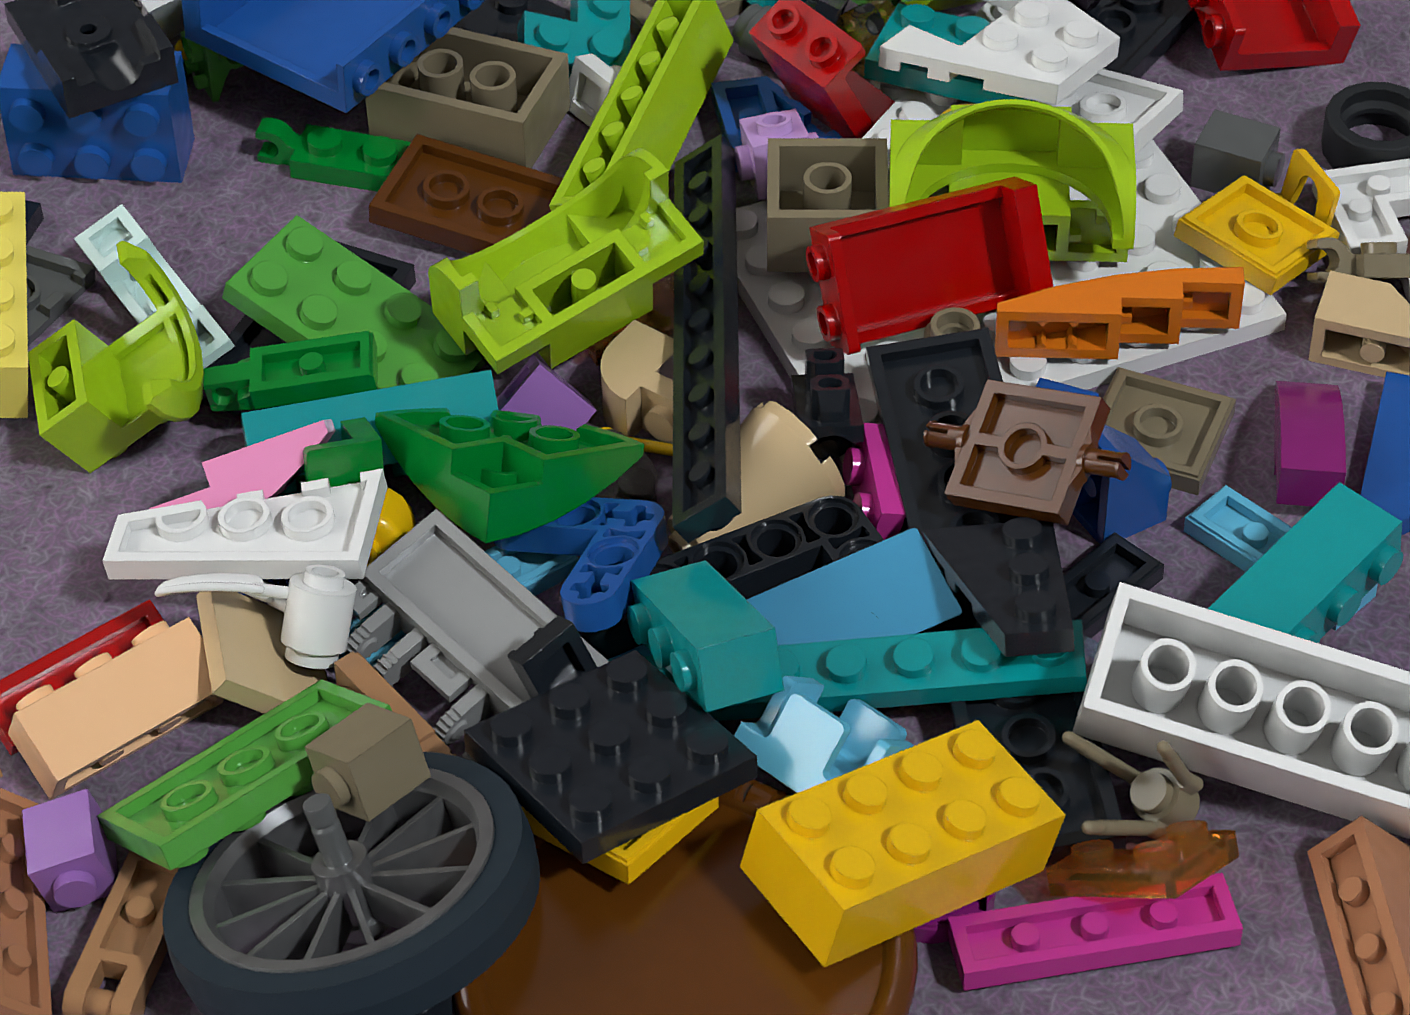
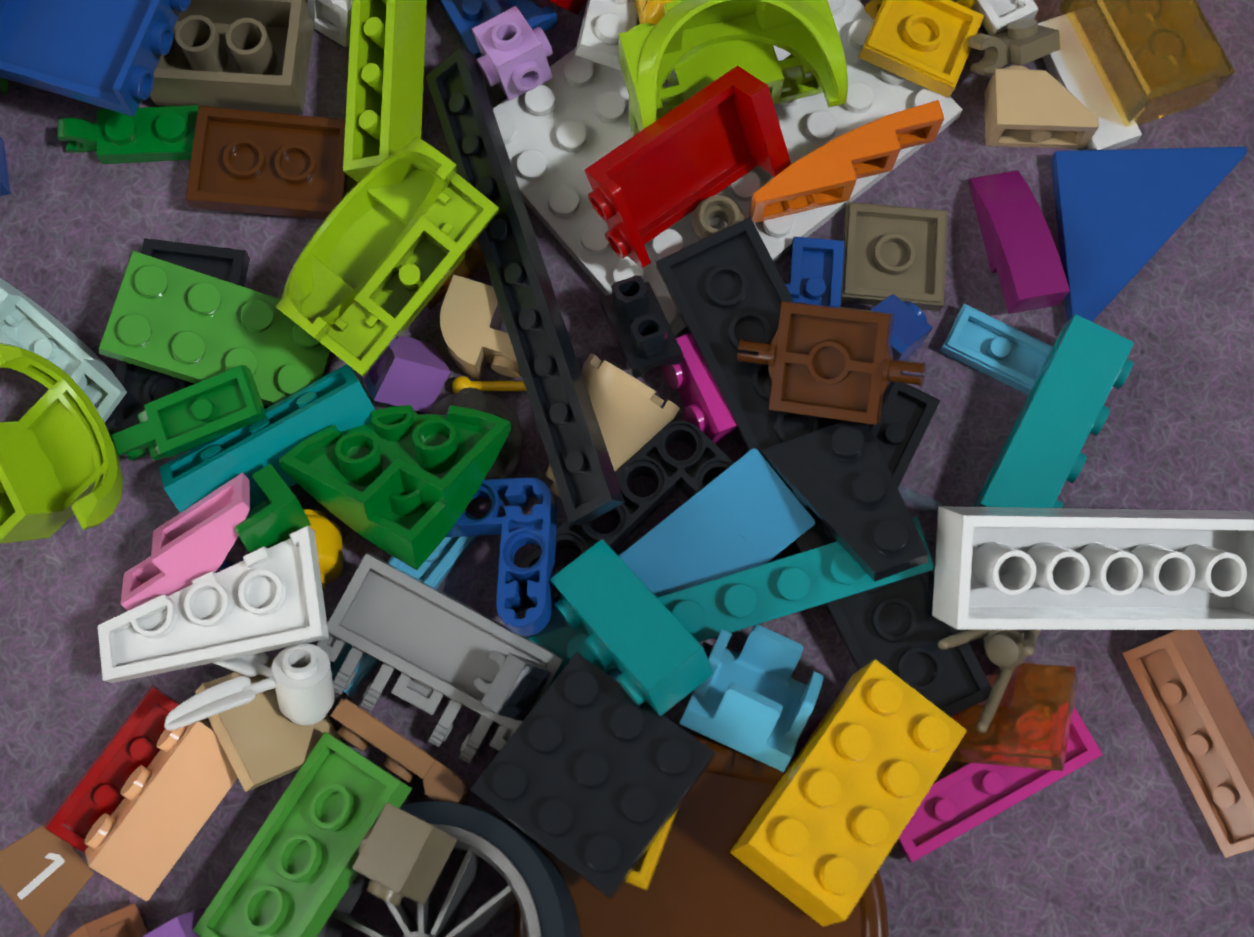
camera: 20 degrees left, 30 degrees up
(817, 184) = (575, 109): dark tan brick -> none

